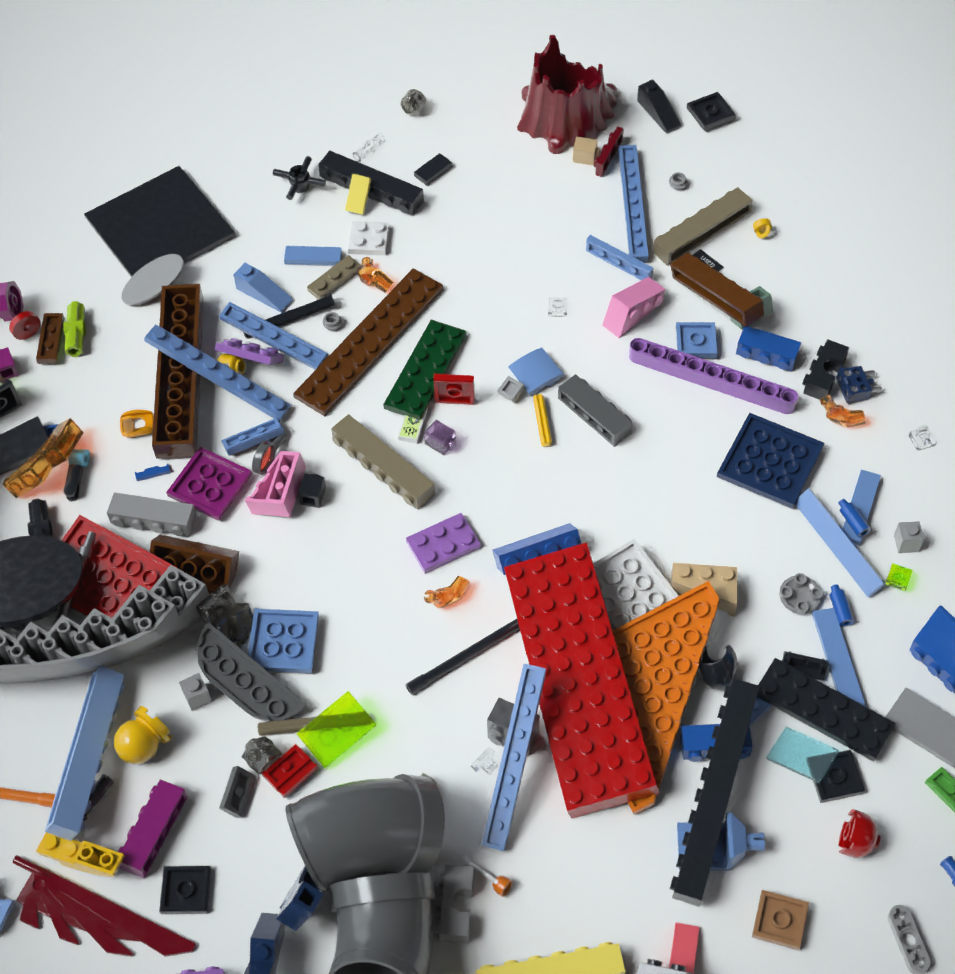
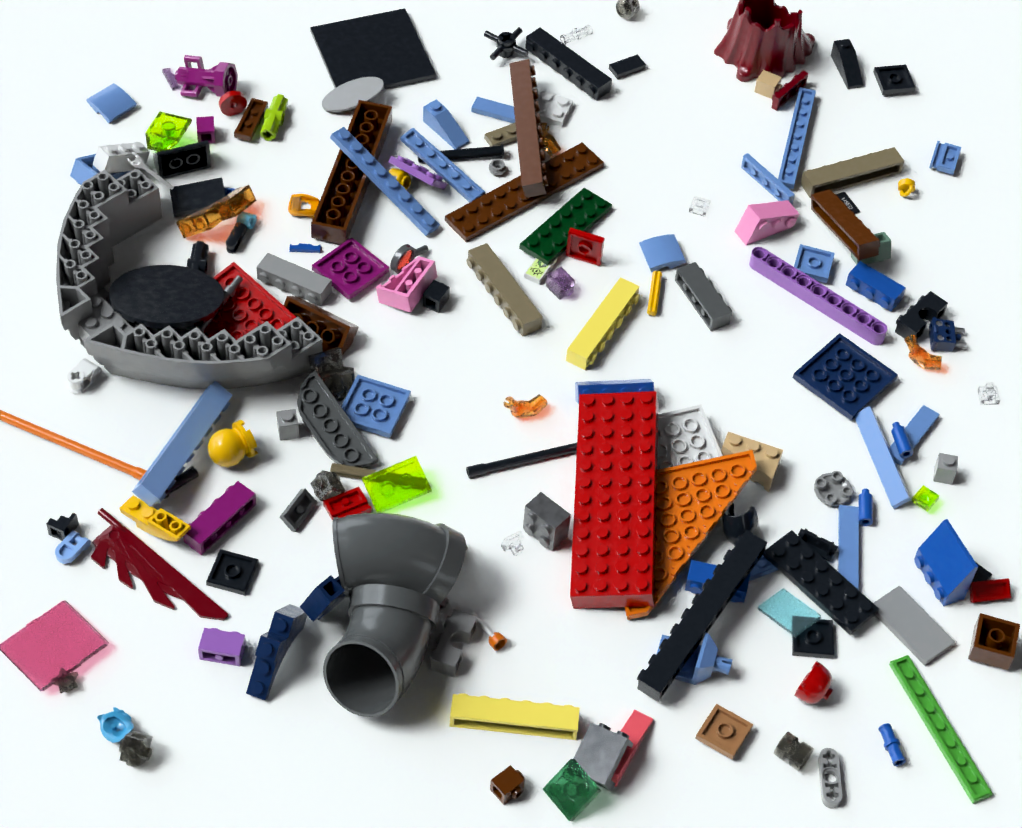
camera: 10 degrees right, 5 degrees down
(252, 436) = (396, 241): medium blue tile -> none
(352, 270) = (528, 128): none -> reddish brown brick
(358, 194) = (553, 69): light yellow tile -> none
(443, 543) = (535, 367): medium lavender plate -> none
(499, 472) = (602, 324): none -> light yellow brick
(511, 389) = (635, 261): light grey plate -> none
(514, 757) = (538, 540): medium blue plate -> none
(678, 180) = (843, 130): light grey plate -> none
(790, 183) = (945, 157): none -> medium blue plate
(861, 922) = (792, 750): none -> clear smoke wheel

